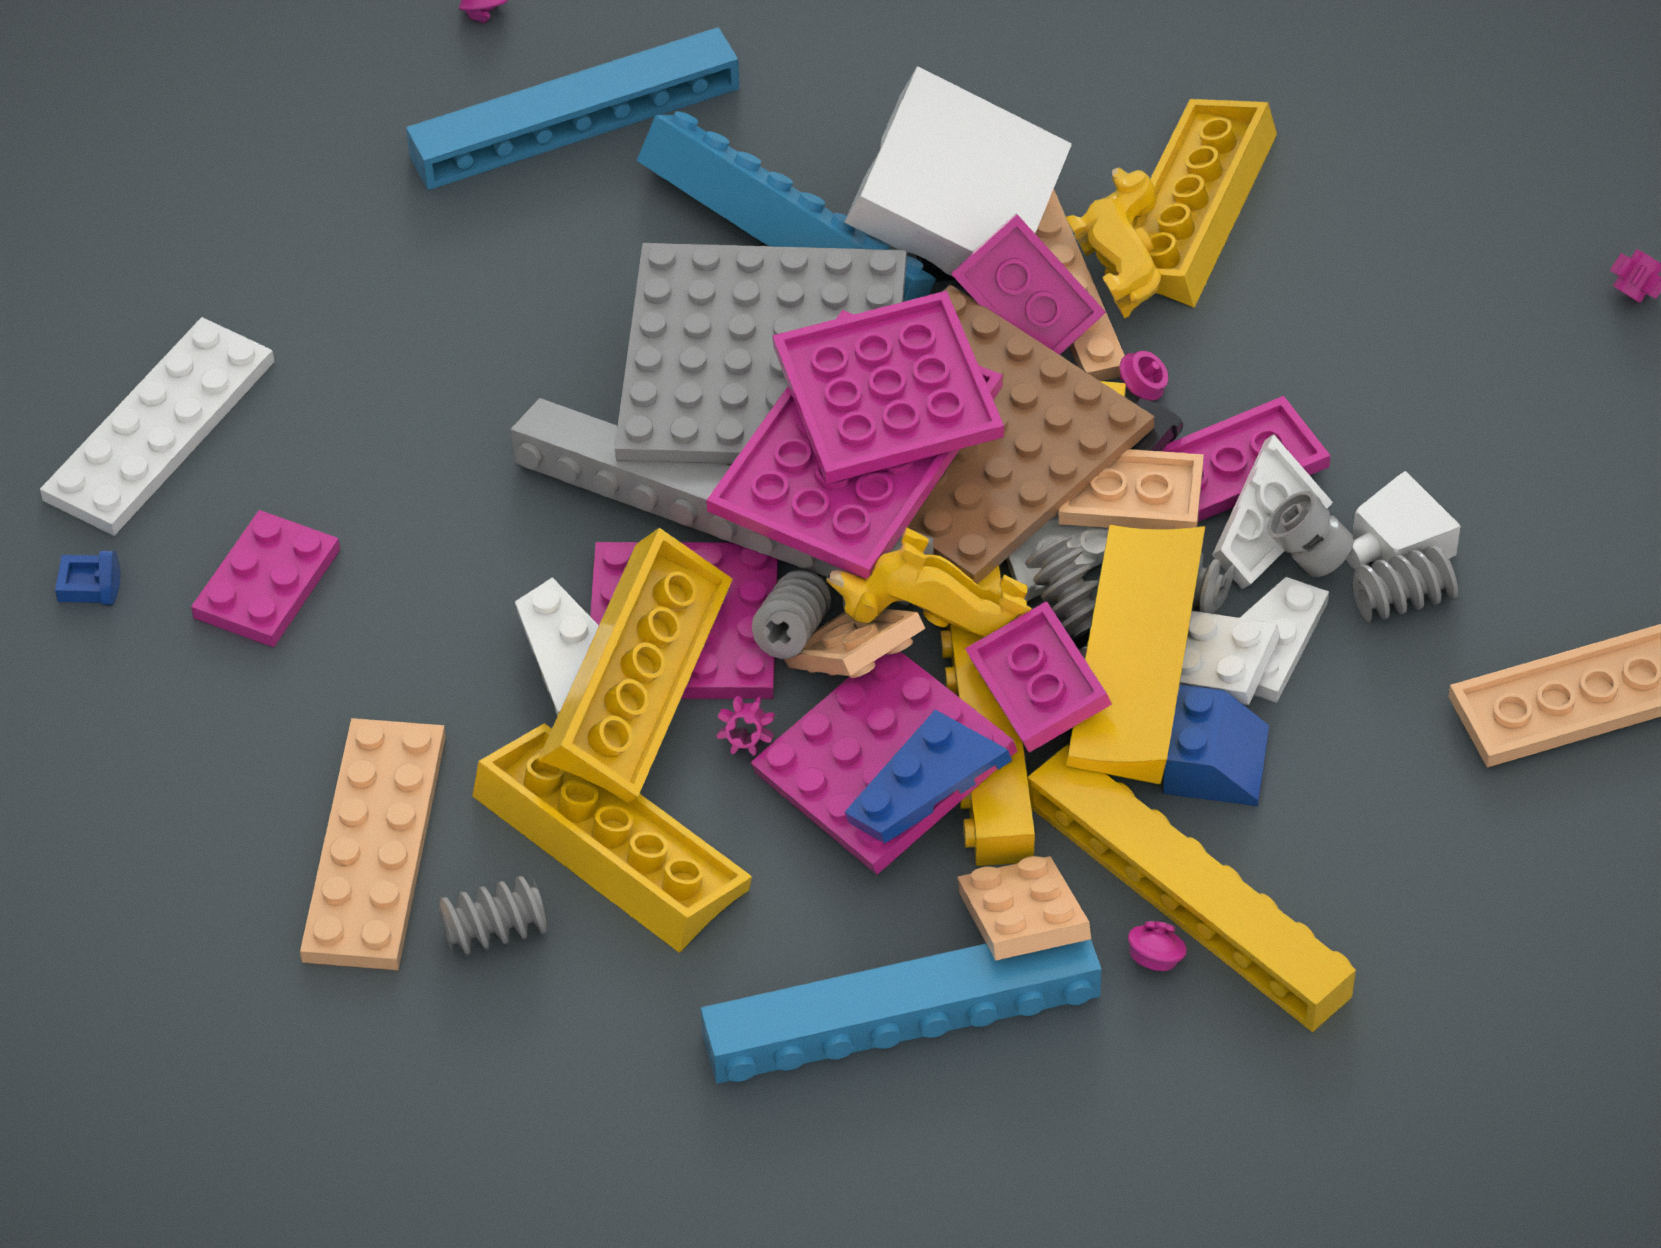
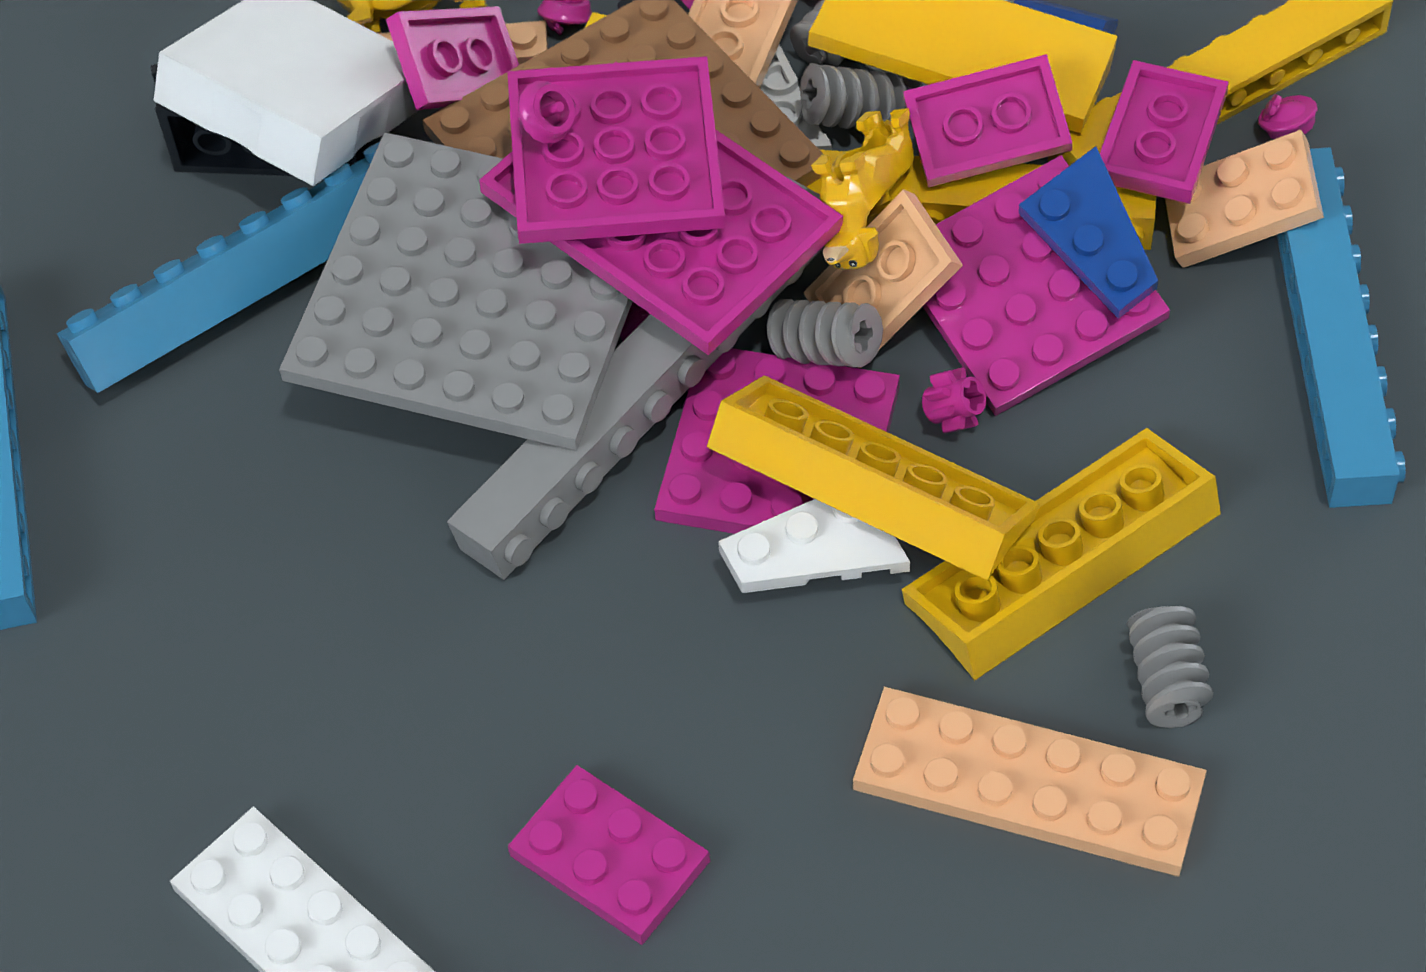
camera: 75 degrees left, 5 degrees up
(891, 317) = (546, 111): none -> dark pink hat
(1072, 820) = (1162, 130): none -> dark pink plate

